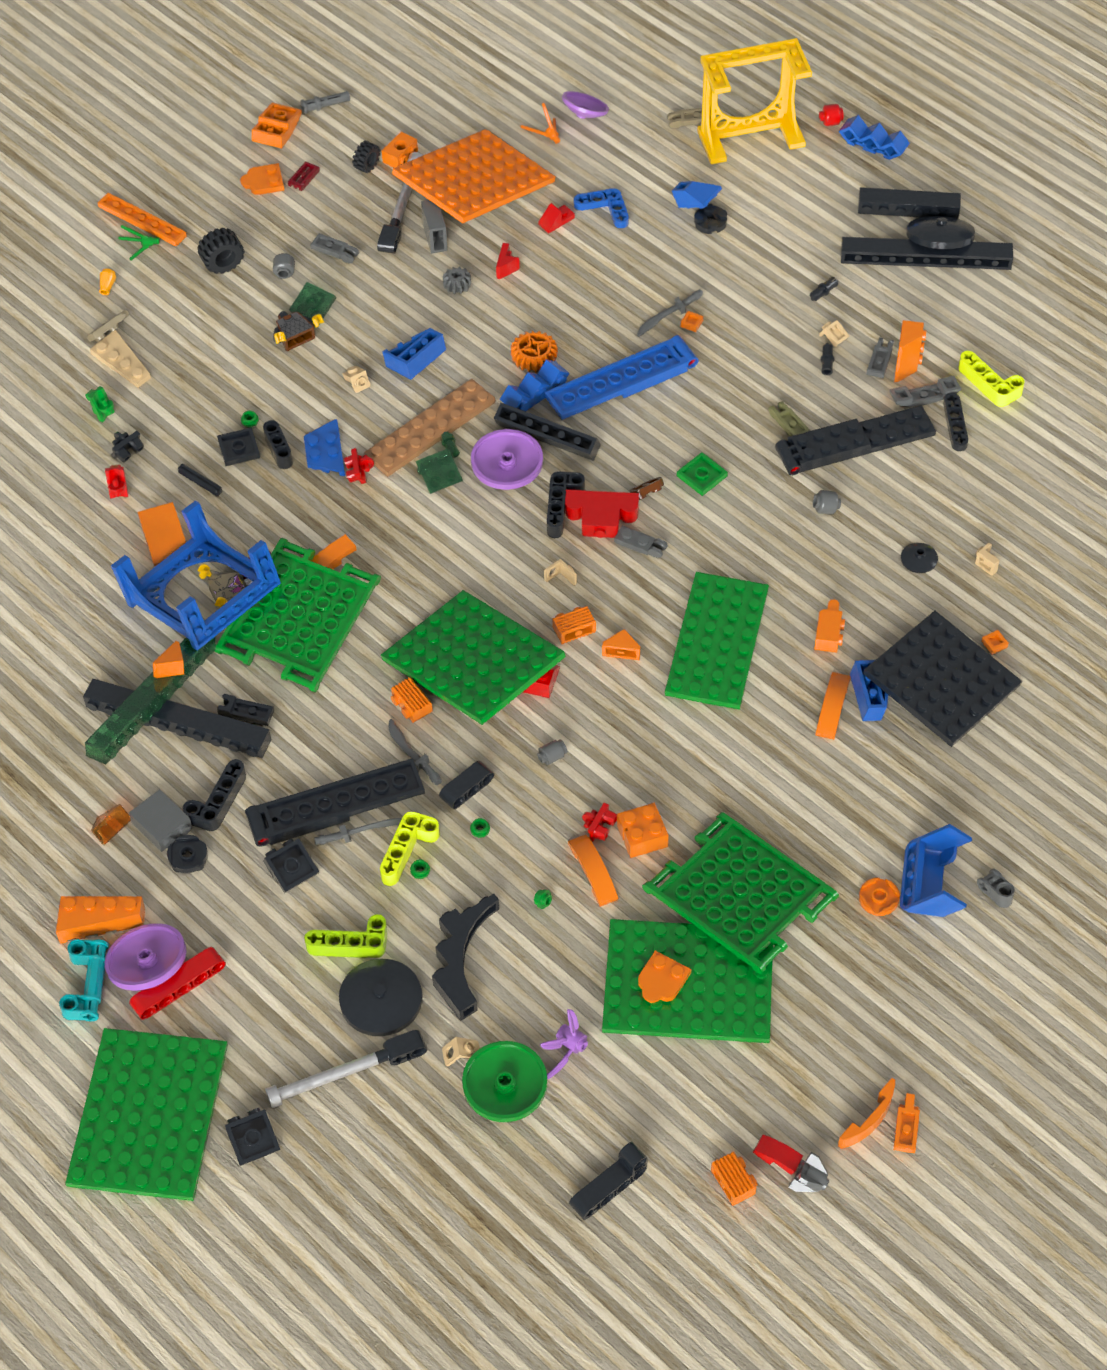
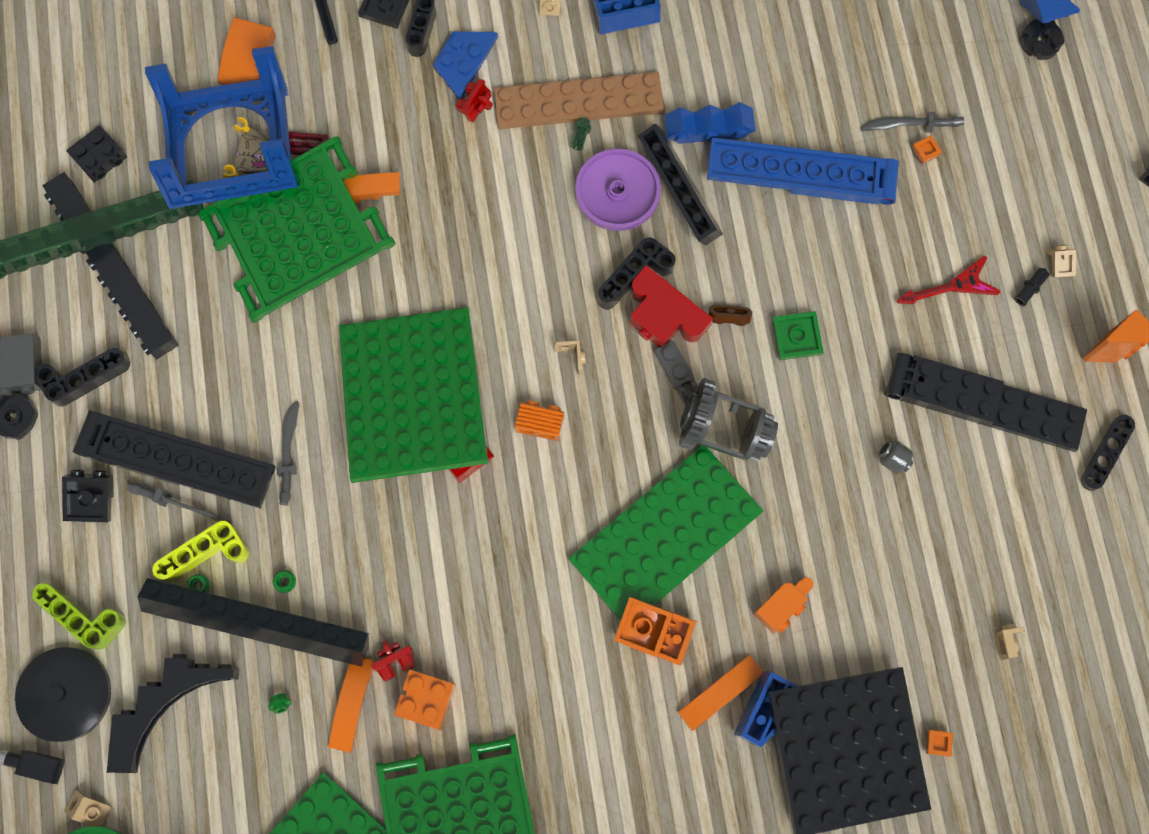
camera: 35 degrees right, 20 degrees up
(102, 659) = (97, 154): none -> black plate
(169, 662) = (127, 208): orange slope -> none
(245, 710) = (176, 300): black plate -> none
(411, 700) = (327, 396): orange brick -> none
(438, 471) = (546, 157): clear green hinge -> none
(466, 784) = (306, 526): black beam -> none
(481, 860) = (254, 622): none -> black brick
(532, 350) = (728, 77): orange gear -> none
(552, 752) = (410, 549): dark grey brick -> none
(621, 646) = (566, 477): orange slope -> none
(681, 549) = (698, 414): none -> dark grey piece
(760, 692) = (655, 631): none -> orange slope
(782, 382) = (965, 282): none -> red piece
(788, 419) = (934, 334): olive hinge -> none
(823, 289) = (1093, 200): black axle -> none
(880, 359) = (1087, 324): dark grey hinge -> none
(919, 563) = (933, 590): black dish -> none
(926, 394) = (1102, 398): dark grey slope -> none

